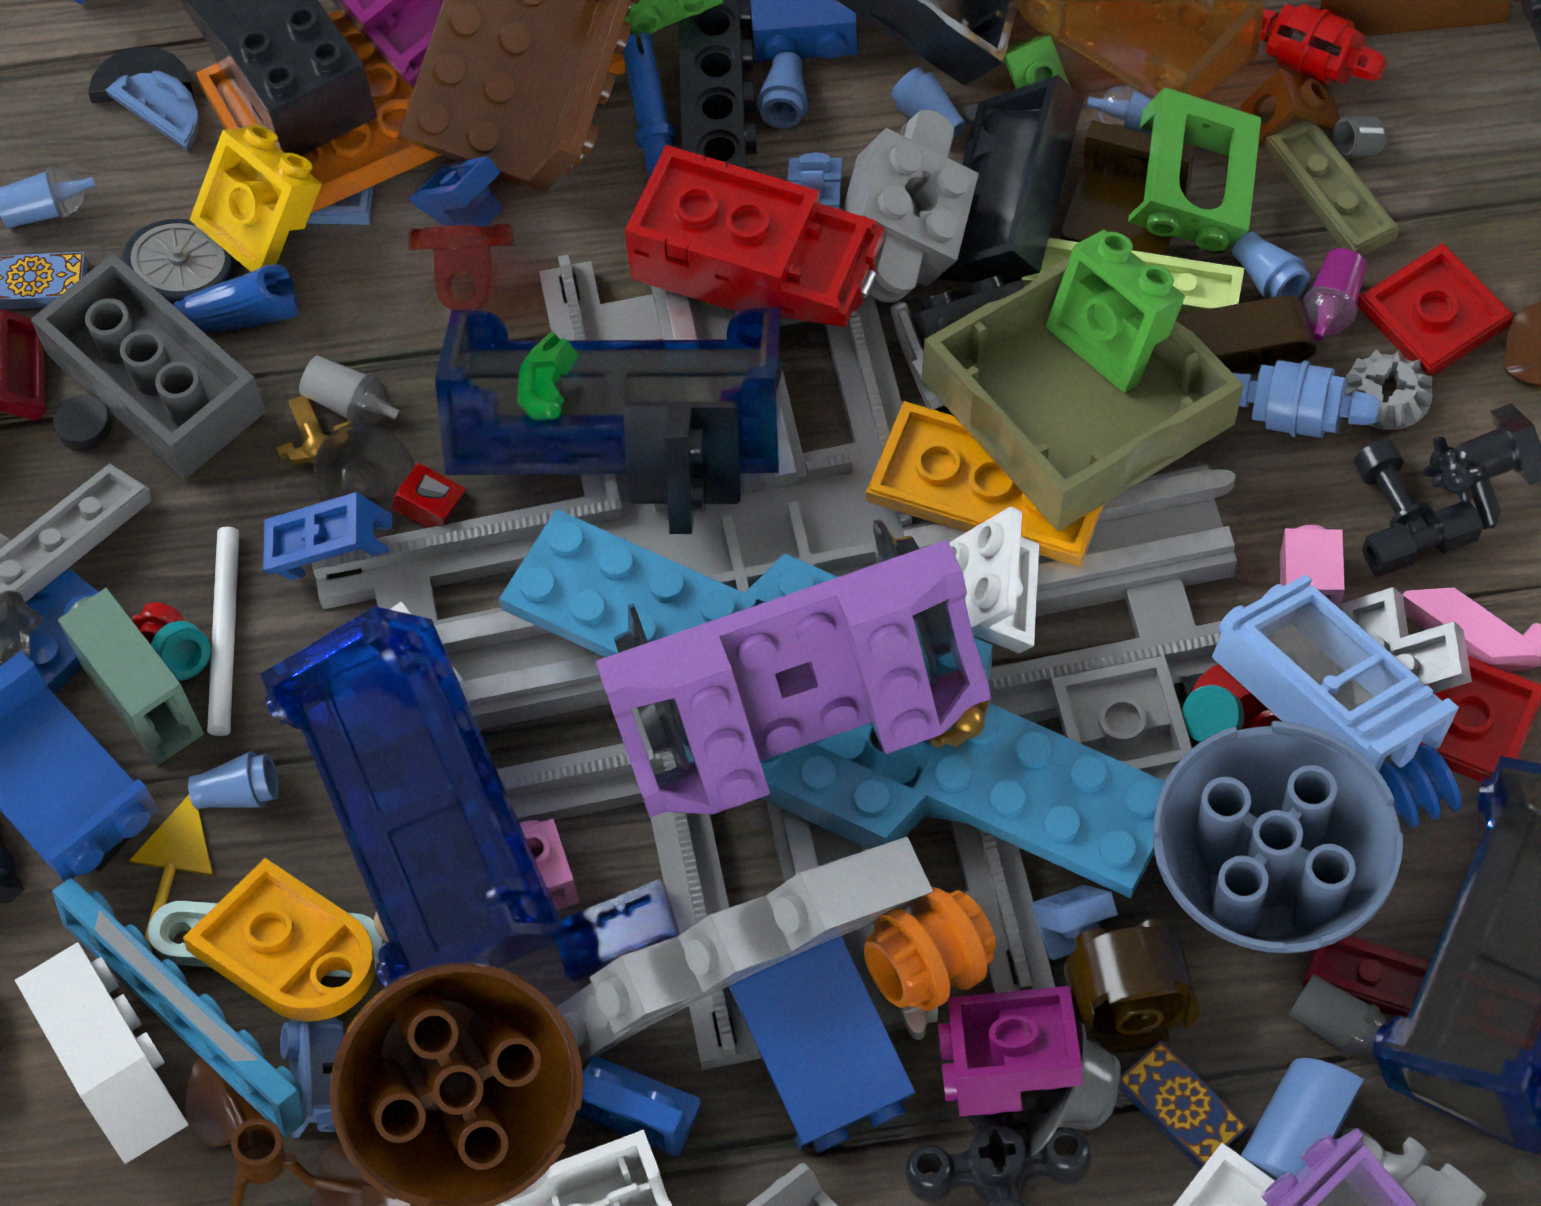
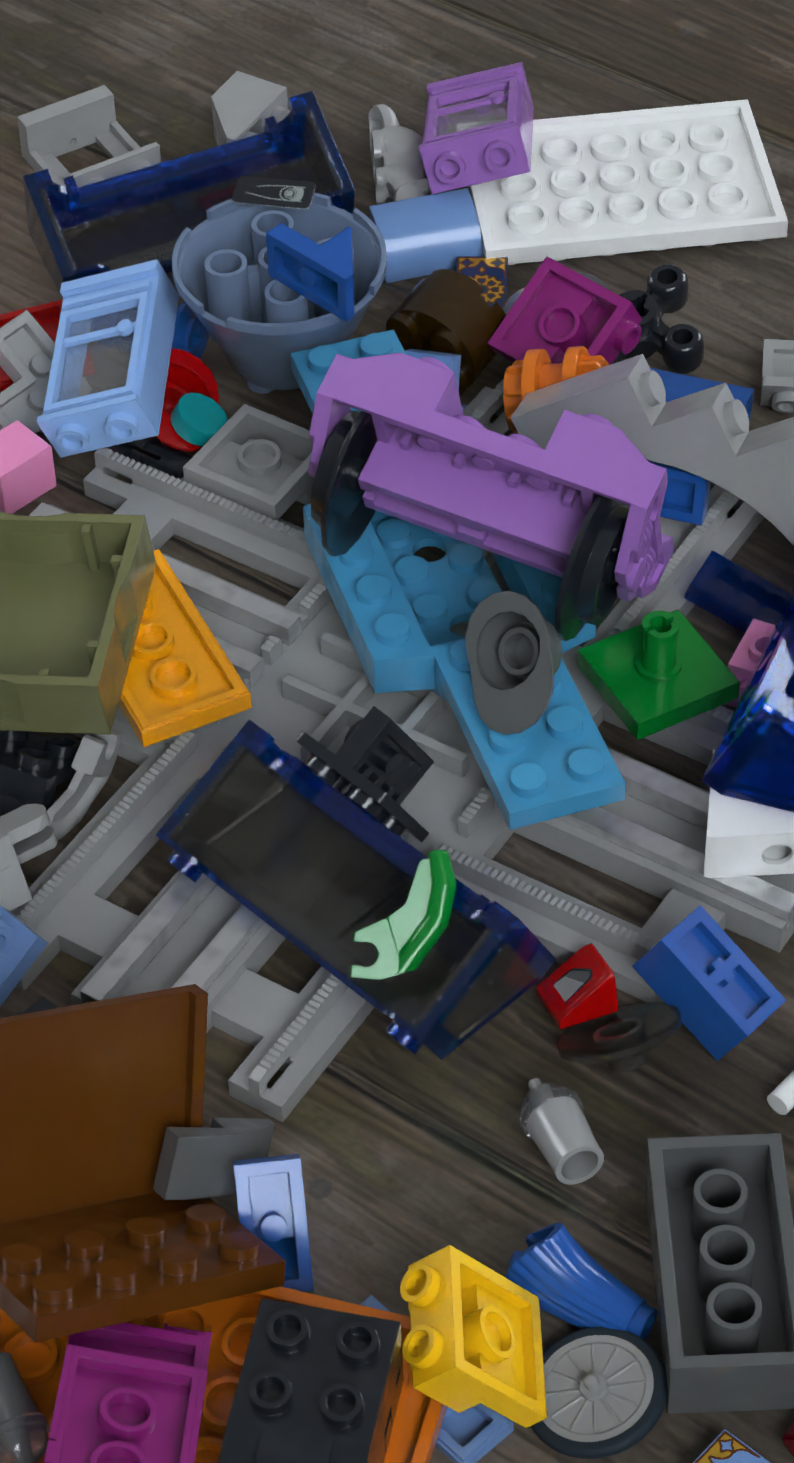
camera: 140 degrees left, 15 degrees down
(310, 432) = (630, 1111): pearl gold piece -> none
(458, 250) = (338, 1148): clear red tile -> none
(522, 198) = (200, 1159): none -> dark grey slope
(586, 768) = (658, 673): none -> green tile
(656, 587) = (511, 661): none -> dark grey piece
(749, 241) = (119, 893): red piece -> none
(1000, 580) = (251, 558): white bracket -> none
(1187, 808) = (314, 270): none -> blue slope
(1372, 902) = (274, 192): none -> black sticker

